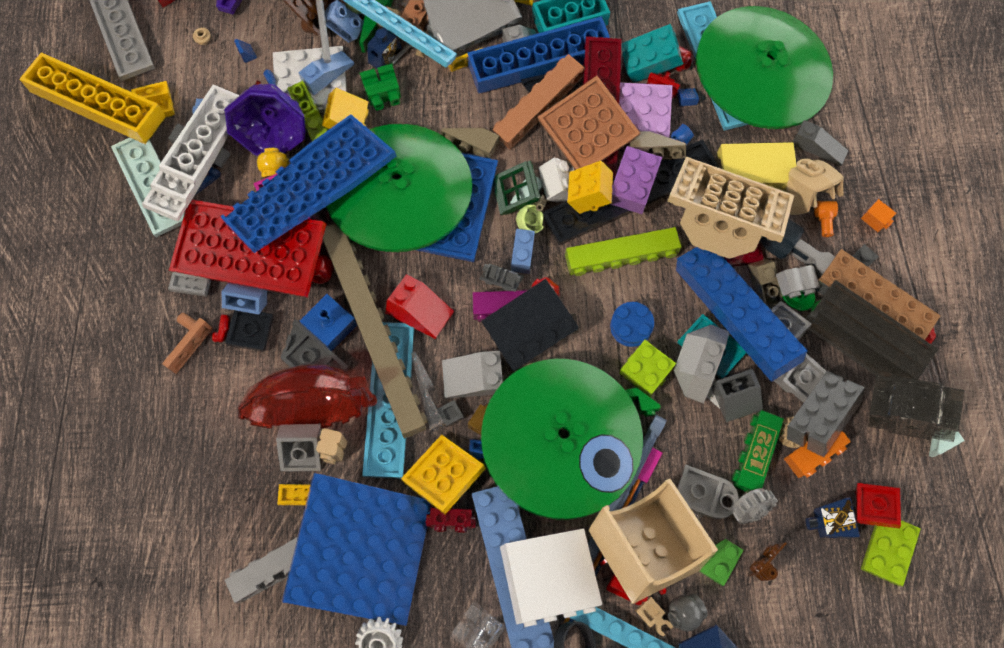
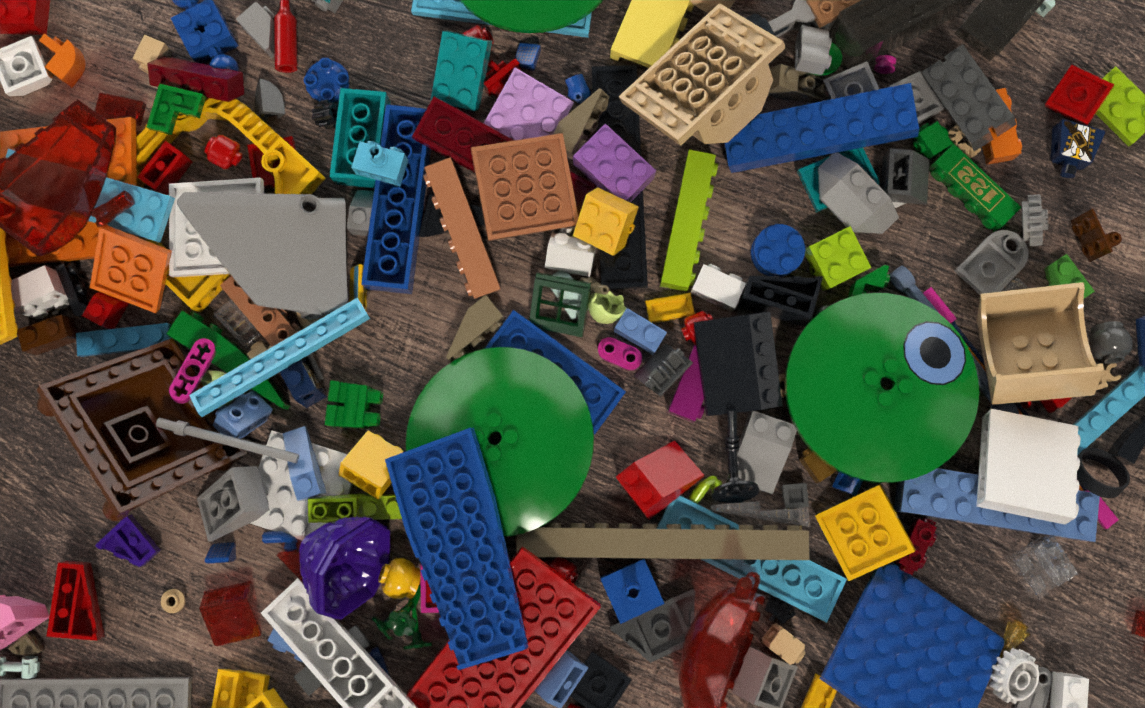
camera: 60 degrees left, 10 degrees up
(205, 71) = (230, 614): none -> clear red bracket
(240, 172) = (403, 623): none -> dark green plant
(283, 40) = (232, 502): none -> light grey slope
(357, 439) = (778, 610): none -> black piece
(414, 631) = (1014, 635): none -> clear yellow cone
(428, 344) = (702, 487): none -> lime arm
(435, 364) = (736, 491): none -> black dish
(500, 245) = (618, 356): none -> dark pink plate
(551, 266) = (669, 308): none -> yellow tile
(556, 26) = (380, 163): none -> medium azure brick
(583, 293) = (718, 287): none -> white brick
(597, 340) = (784, 298): none -> black wedge
(779, 403) = (932, 140): none -> green brick
(819, 345) = (885, 64): none -> dark pink bush

